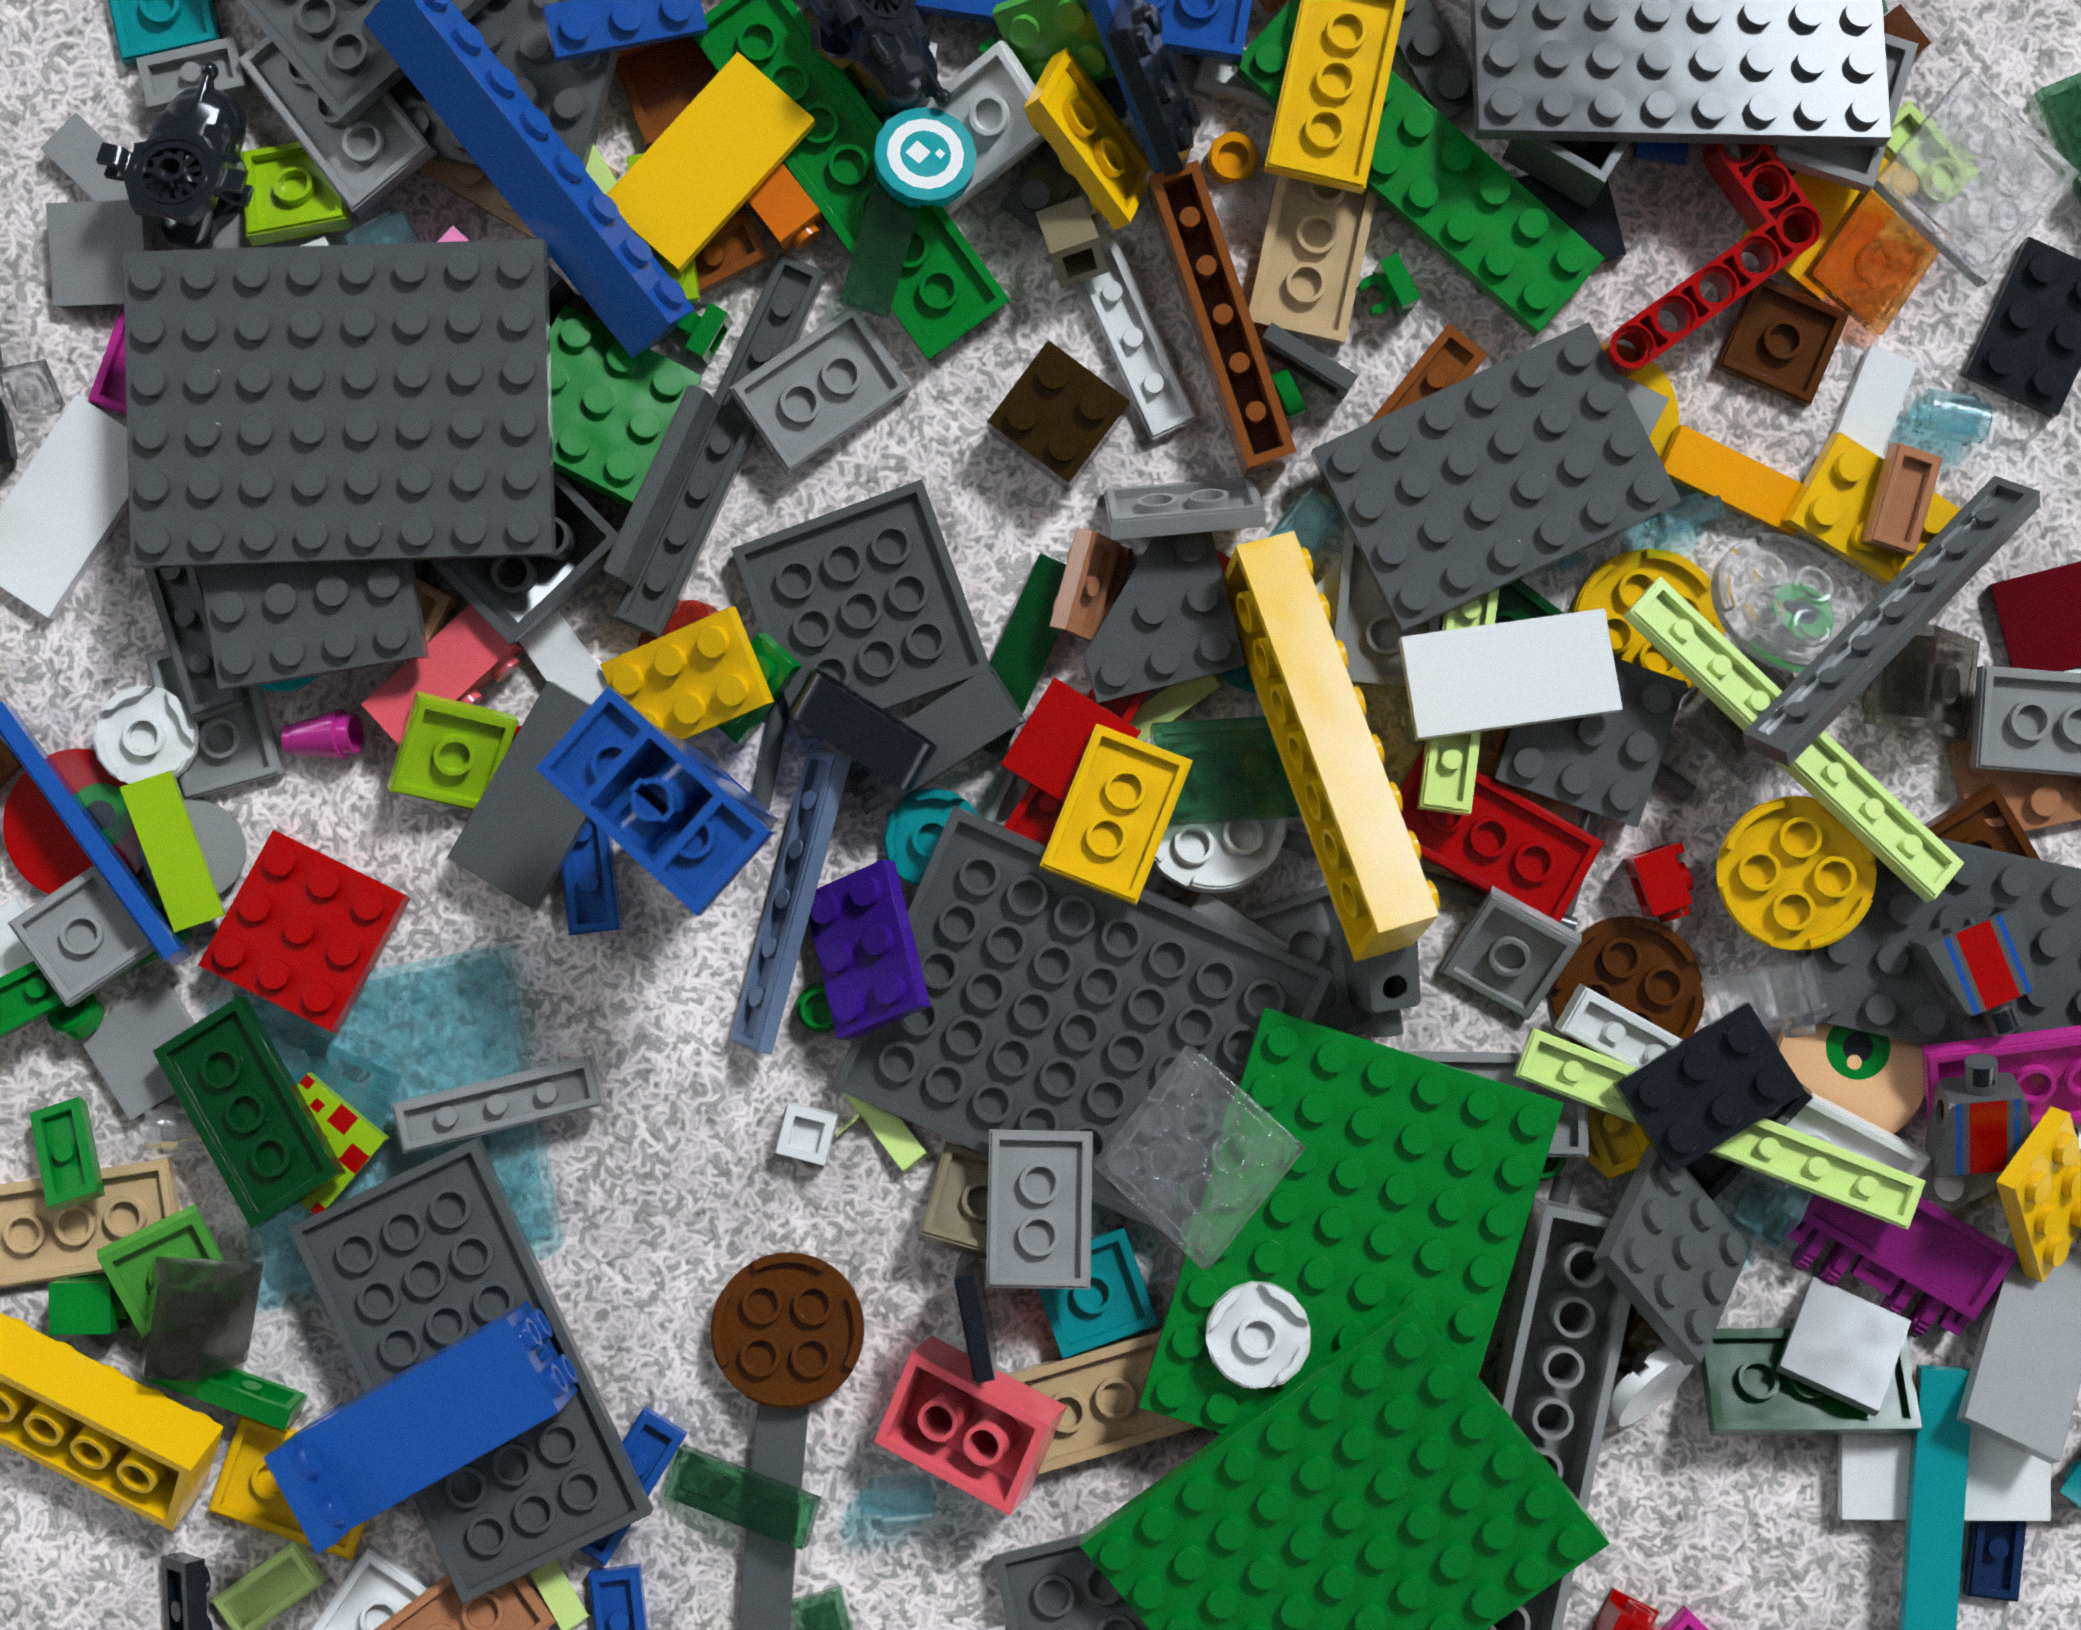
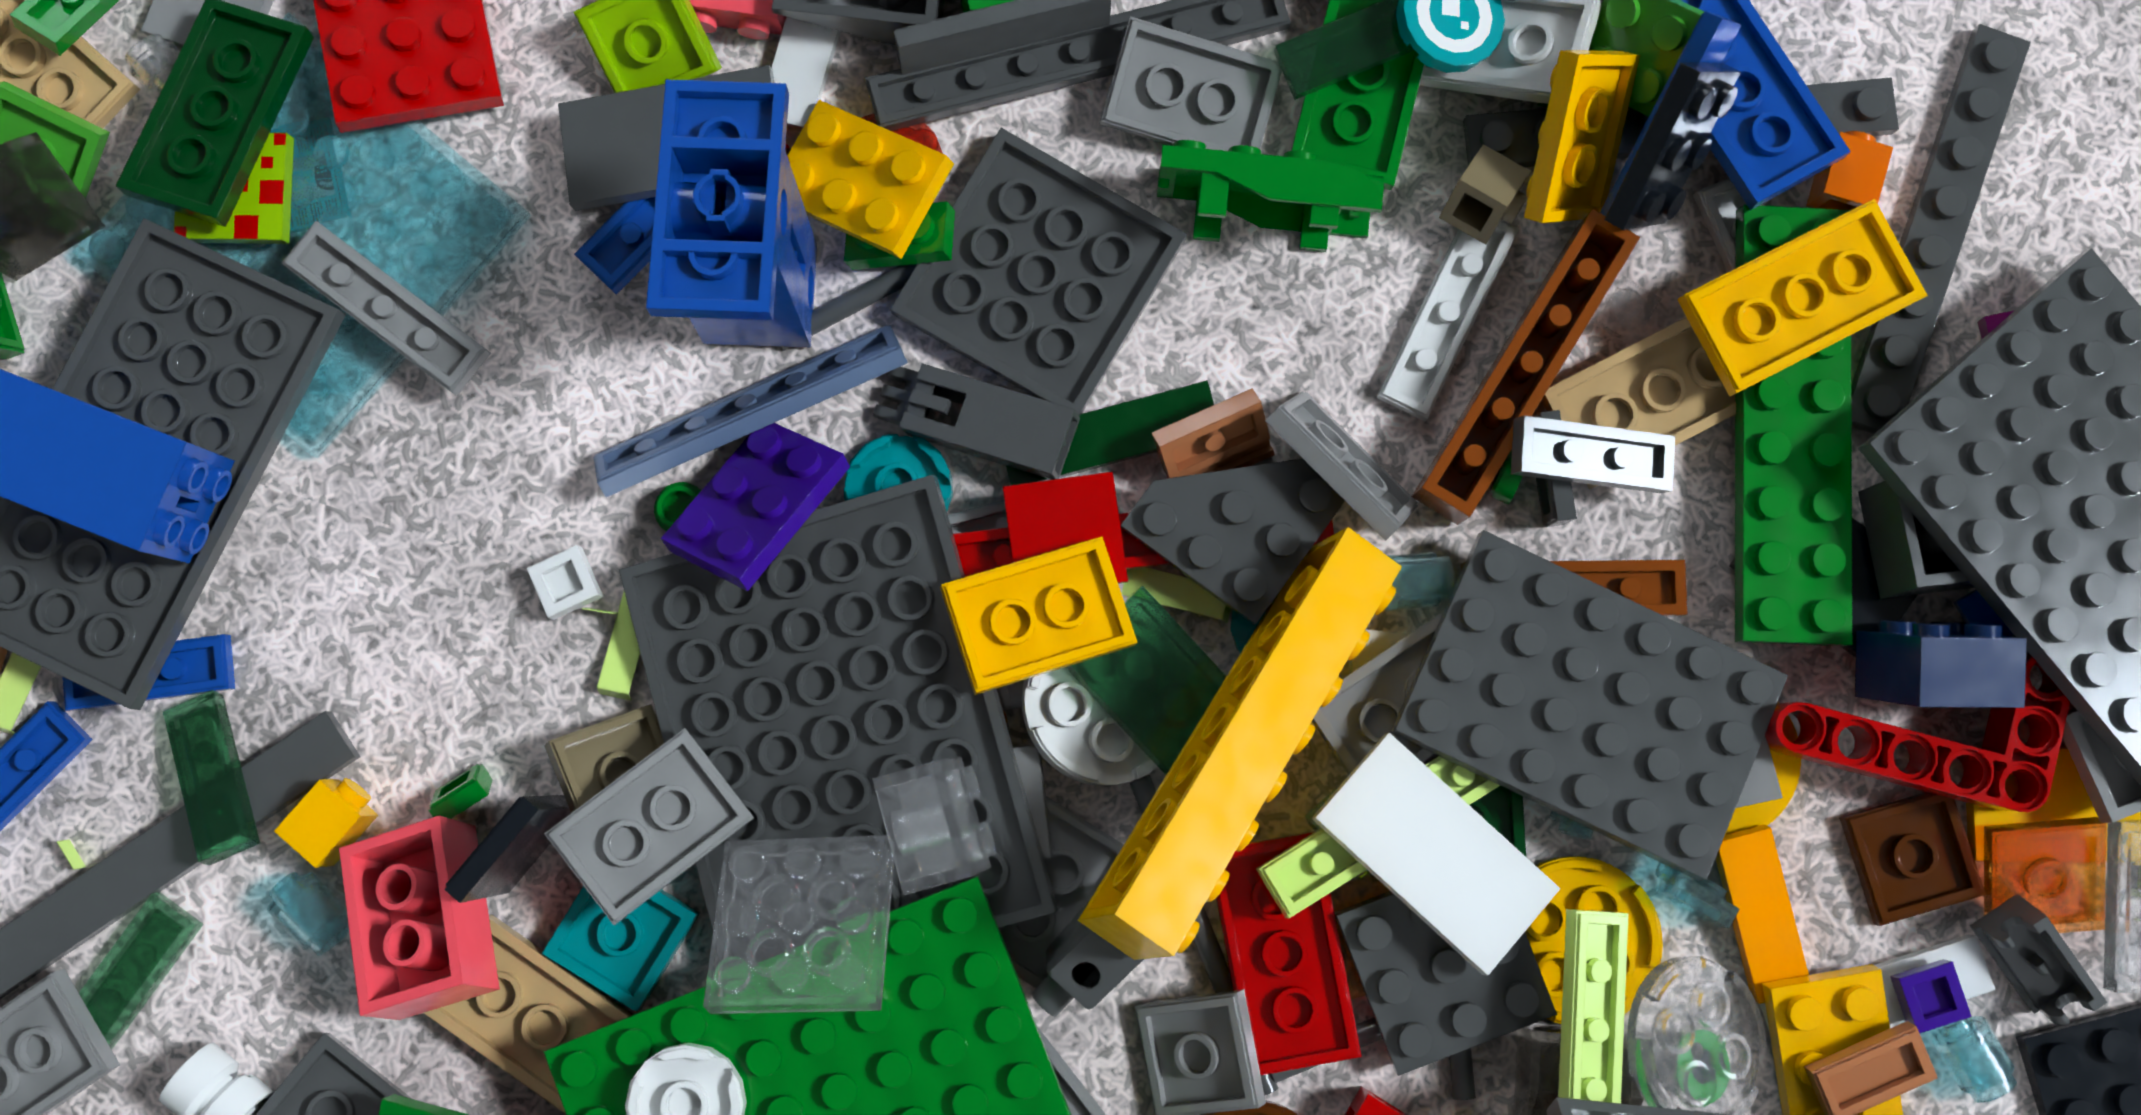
camera: 55 degrees right, 5 degrees down
(787, 1330) = (384, 701): reddish brown tile -> none
(842, 1437) = (327, 819): none -> yellow brick
(862, 729) = (936, 349): black beam -> none
(900, 1327) = (461, 792): none -> green tile
(953, 385) = (1270, 191): none -> green piece
(1058, 415) = (1333, 301): dark brown brick -> none
(1207, 1007) = (934, 823): none -> clear brick
(1232, 158) = (1665, 272): light orange tile -> none
(1324, 327) = (1592, 454): none -> plate
(1394, 284) = (1676, 503): green tile -> none
(1670, 211) = (1941, 665): none -> dark blue brick
(1885, 413) = (1931, 995): none -> dark purple plate
(1920, 319) = (2036, 959): none -> dark grey hinge

